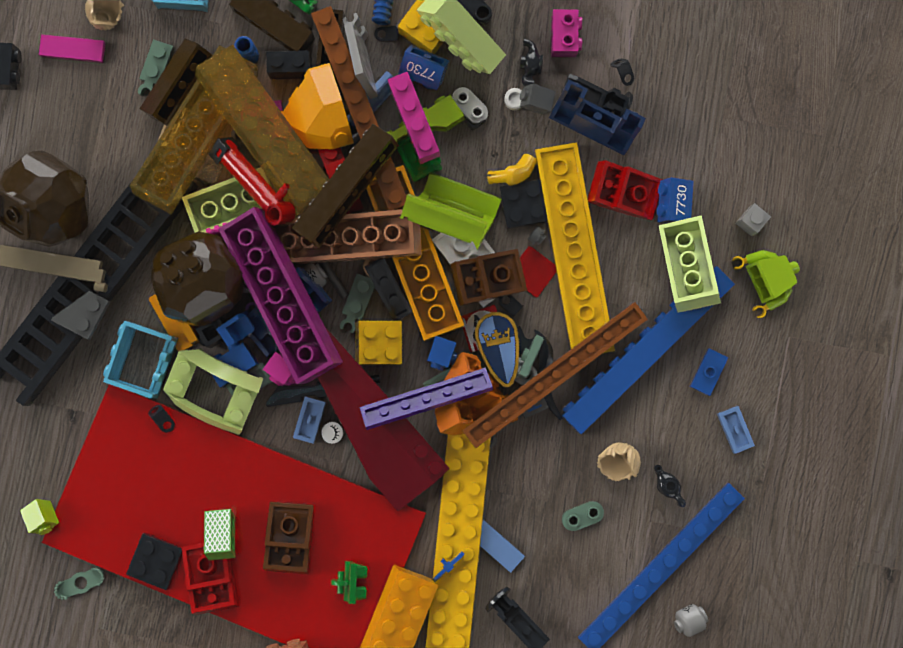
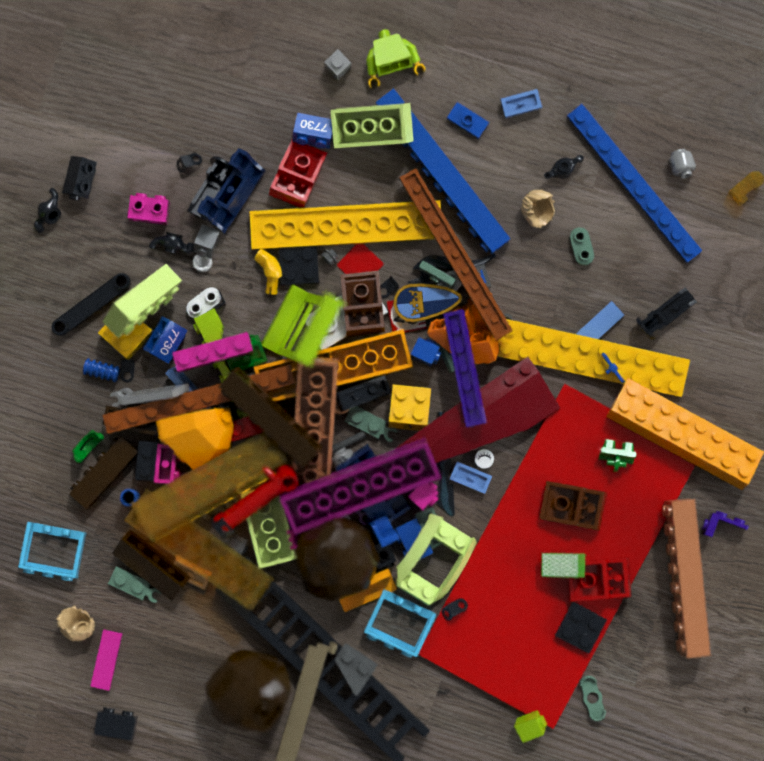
camera: 85 degrees left, 0 degrees up
(282, 84) = (166, 465): none -> dark pink brick

